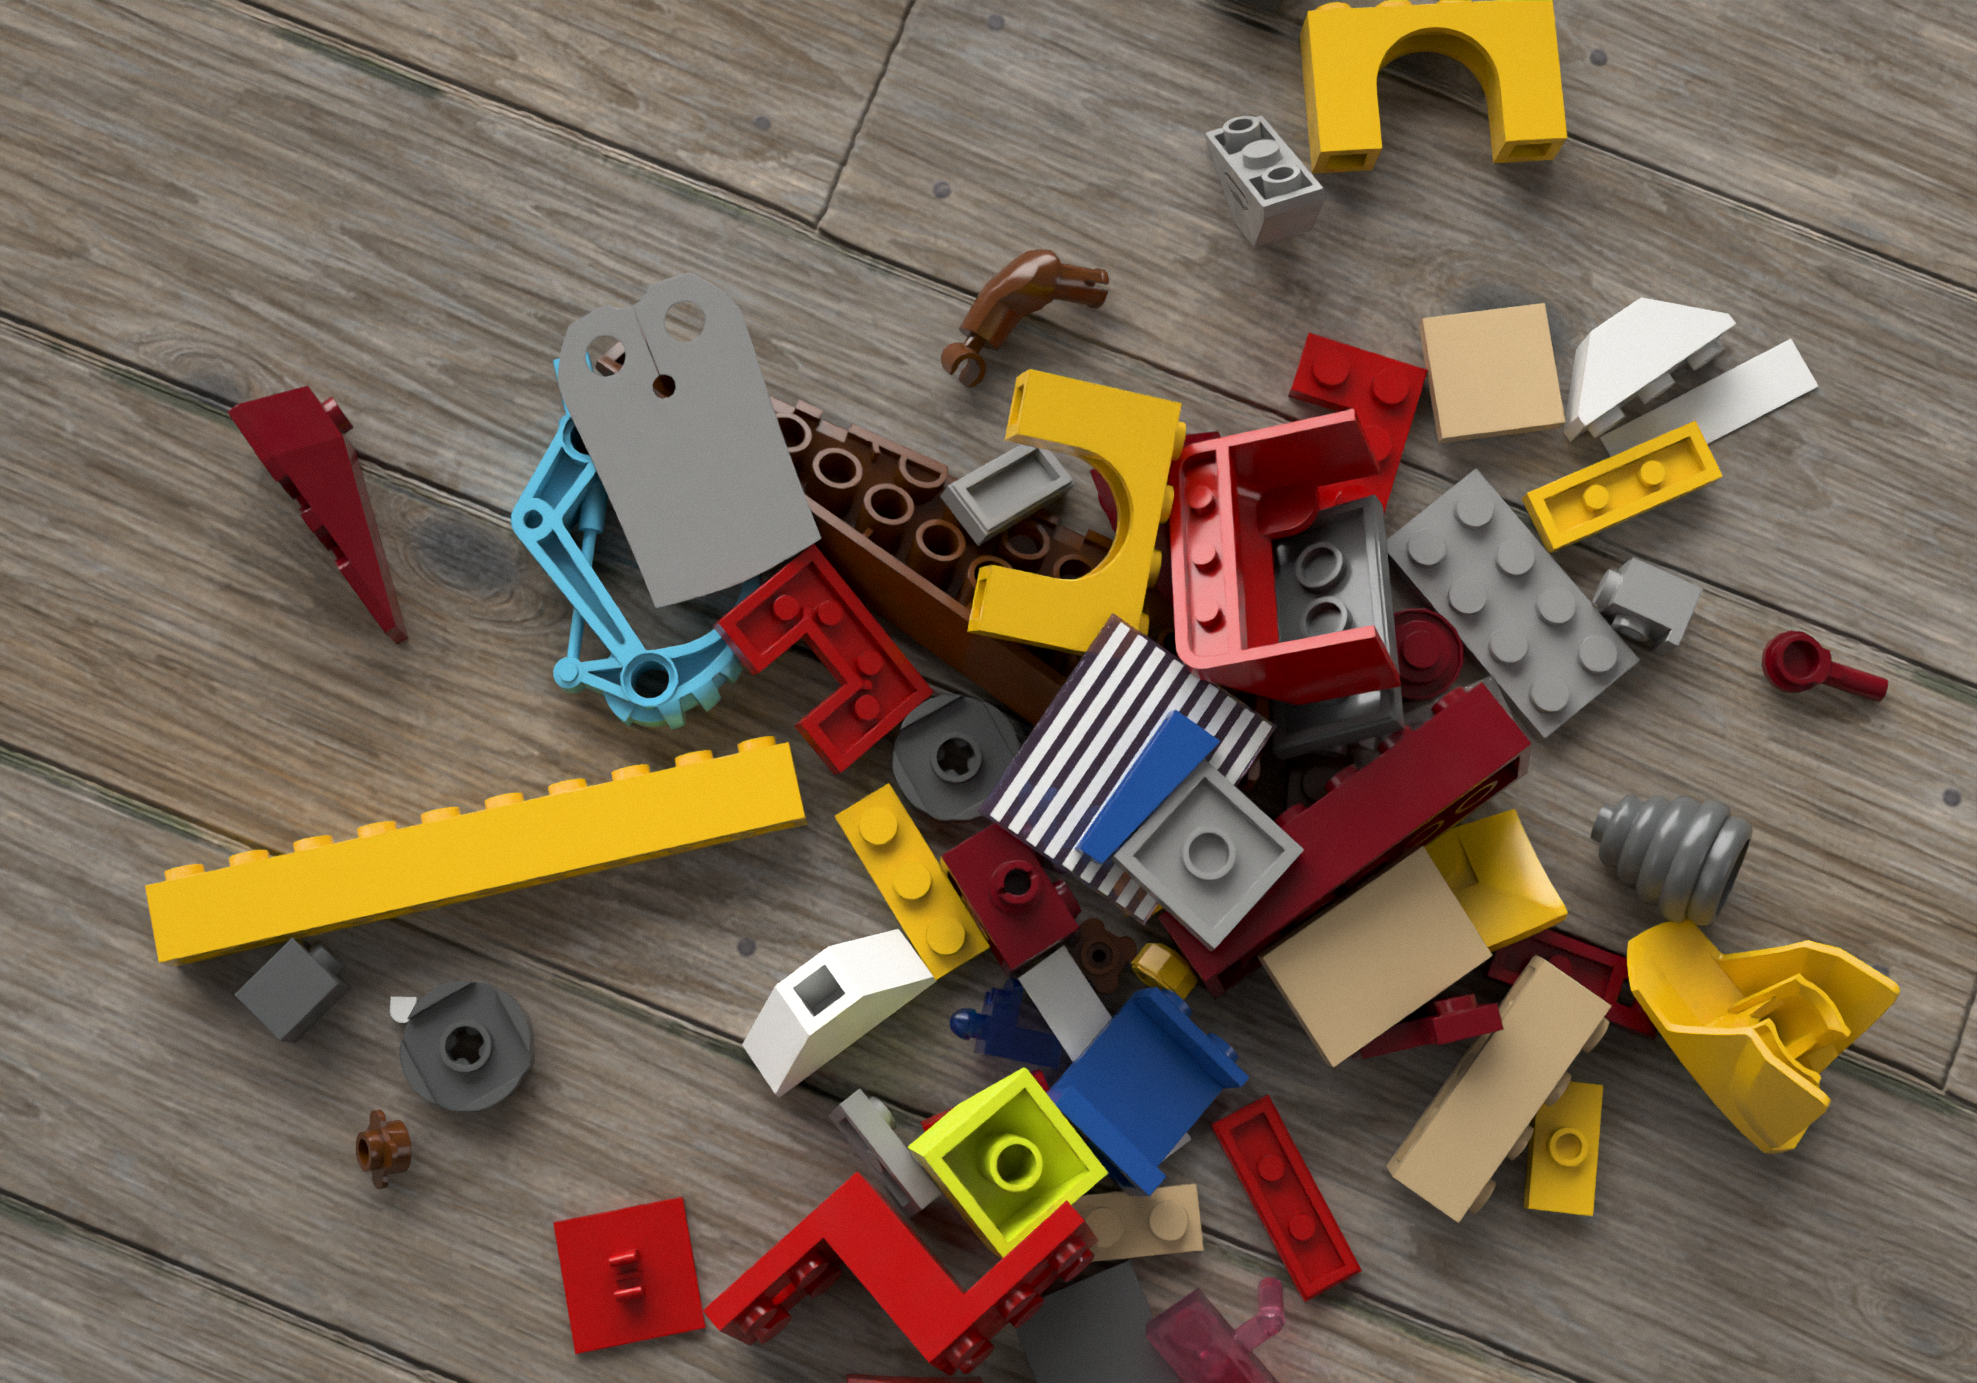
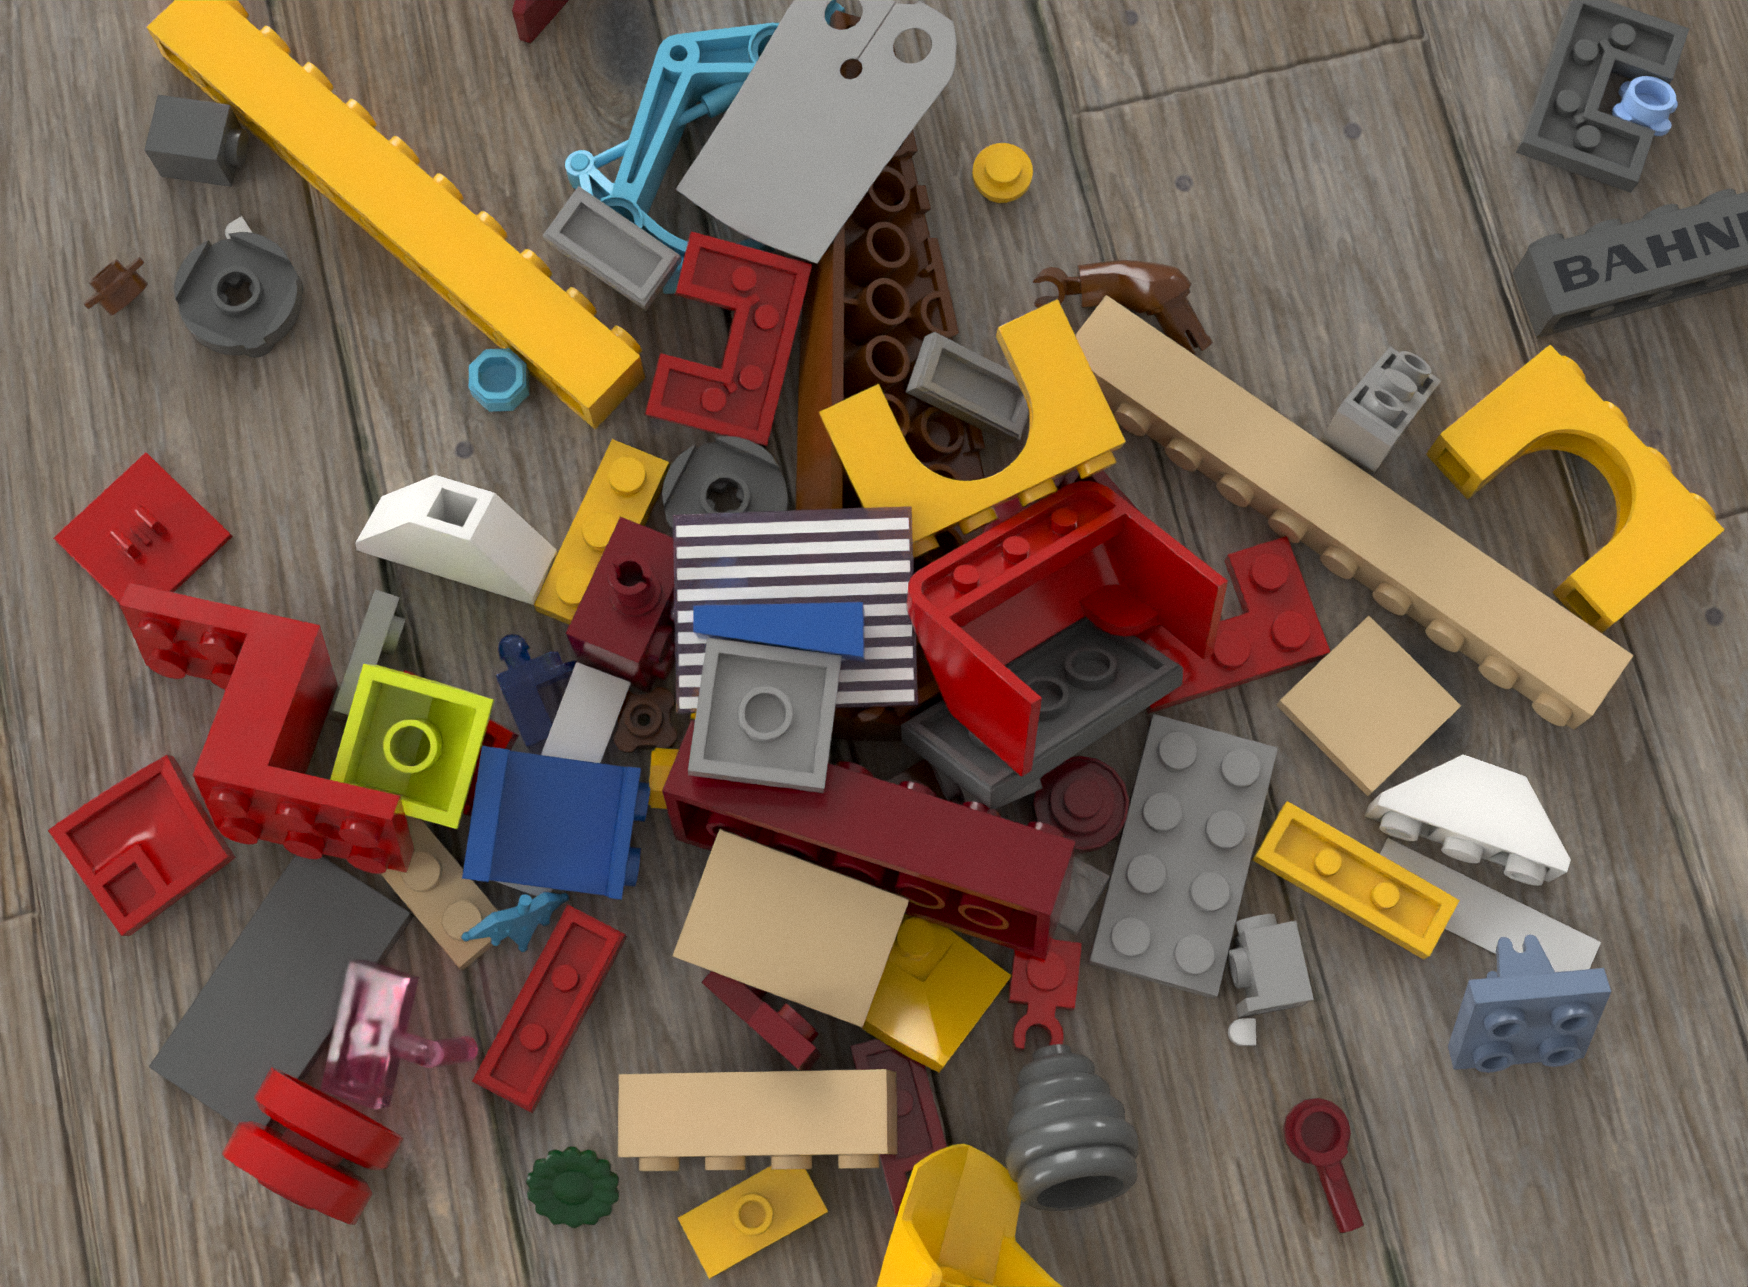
camera: 60 degrees right, 5 degrees down
(676, 698) = (612, 248): none -> light grey tile
(711, 875) = (499, 379): none -> medium azure tile
(829, 328) = (1002, 172): none -> yellow plate
(1203, 1177) = (517, 921): none -> dark azure piece
(1328, 274) = (1350, 519): none -> tan brick
(1448, 1276) = (572, 1187): none -> dark green piece
(1542, 795) = (1044, 988): none -> red plate
(1676, 662) = (1243, 1032): none -> white piece
(1818, 435) = (1527, 1012): none -> sand blue plate

